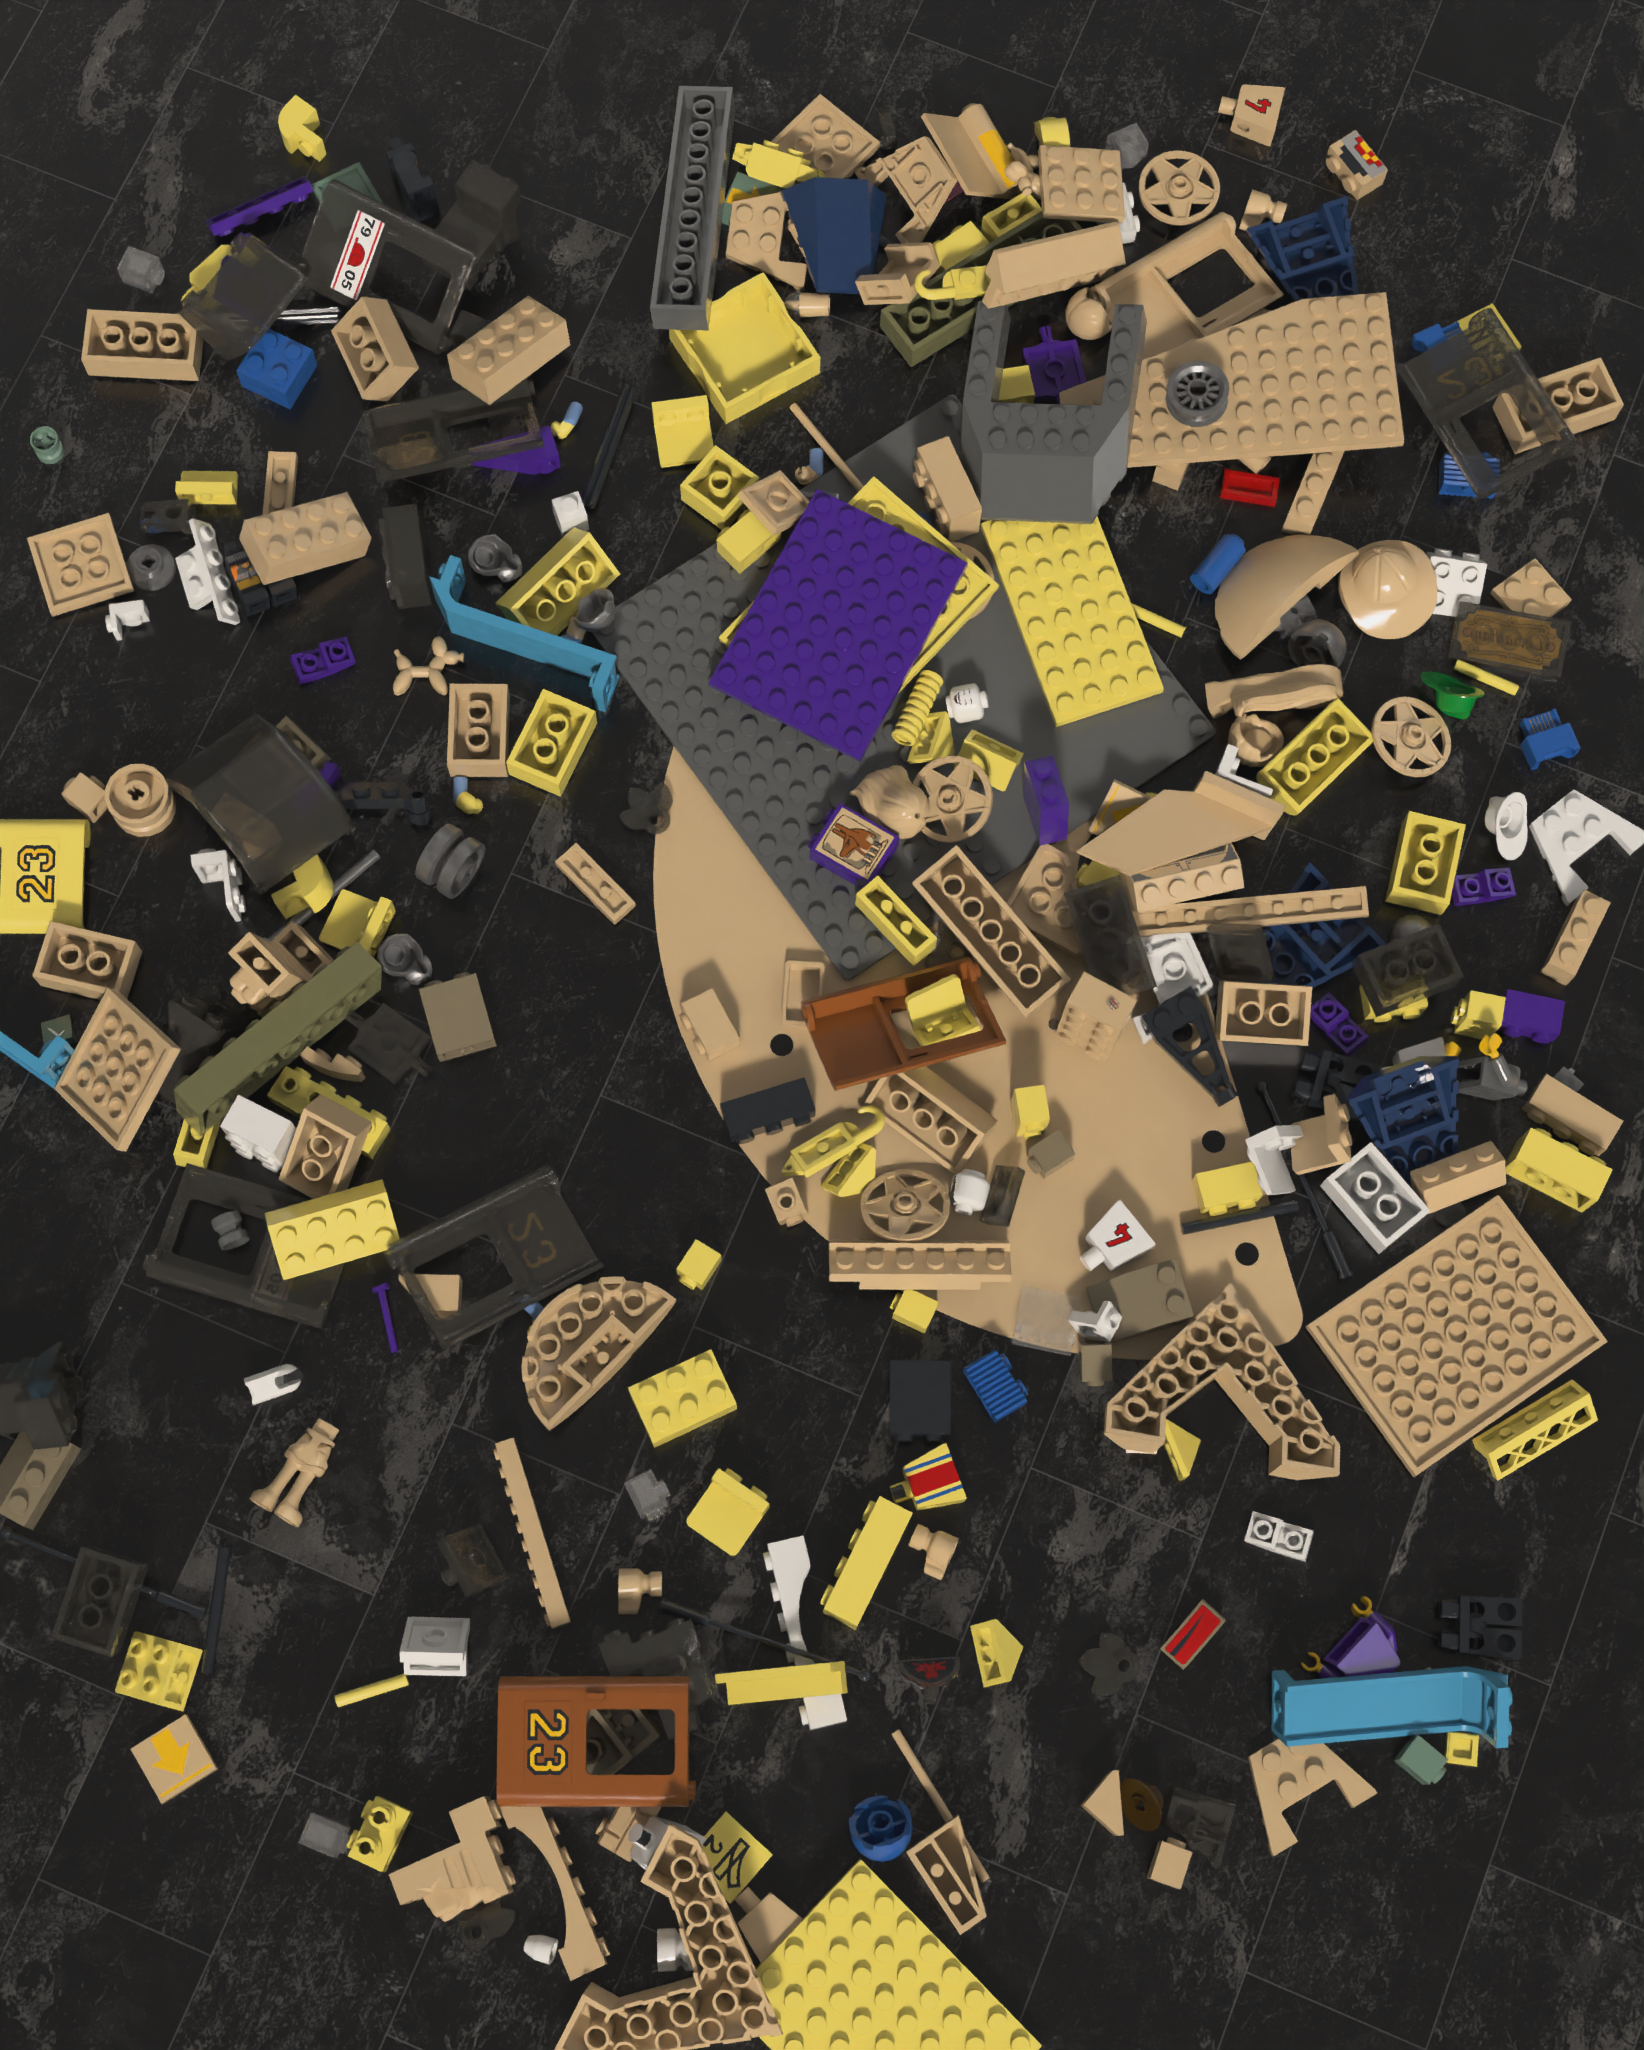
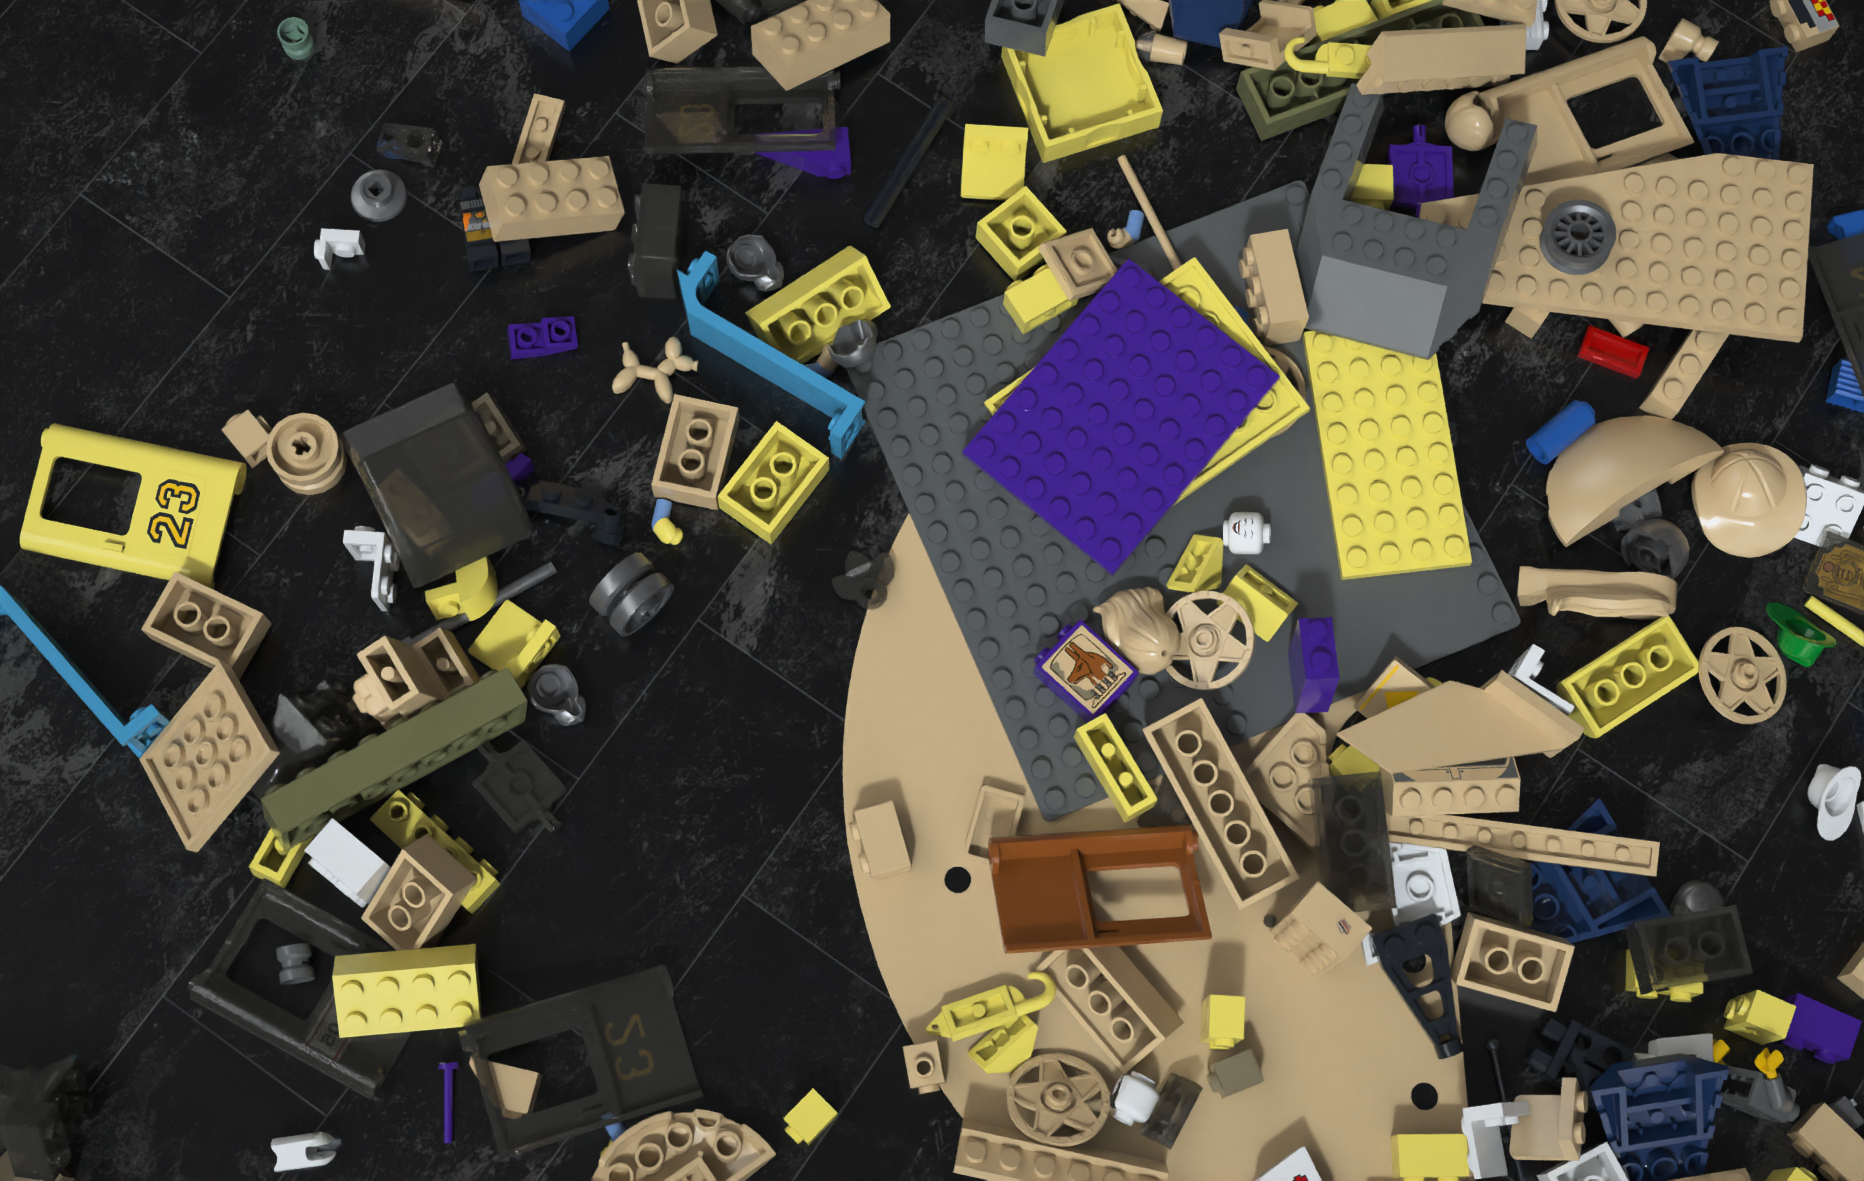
camera: 10 degrees right, 0 degrees up
(60, 1026) = (160, 694): sand green slope -> none
(80, 564) = (302, 177): tan plate -> none
(205, 575) = (435, 216): white bracket -> none
(208, 487) = (460, 119): light yellow panel -> none
(340, 1068) = (459, 803): tan slope -> none
(457, 1016) = (601, 771): dark tan brick -> none
(570, 419) = (870, 126): arm -> none
(570, 513) = (849, 228): white brick -> none
(595, 883) = (788, 652): tan plate -> none
(768, 1111) = (926, 955): black brick -> none
(917, 708) = (1189, 527): light yellow piece -> none
(940, 1012) = (1144, 885): light yellow bracket -> none
(1158, 621) = (1480, 482): light yellow piece -> none
(1256, 739) = (1566, 643): tan piece -> none
(1337, 1026) = (1592, 992): dark purple slope -> none
(1425, 863) = (1731, 825): light yellow brick -> none
(1483, 887) = (1789, 864): dark purple slope -> none

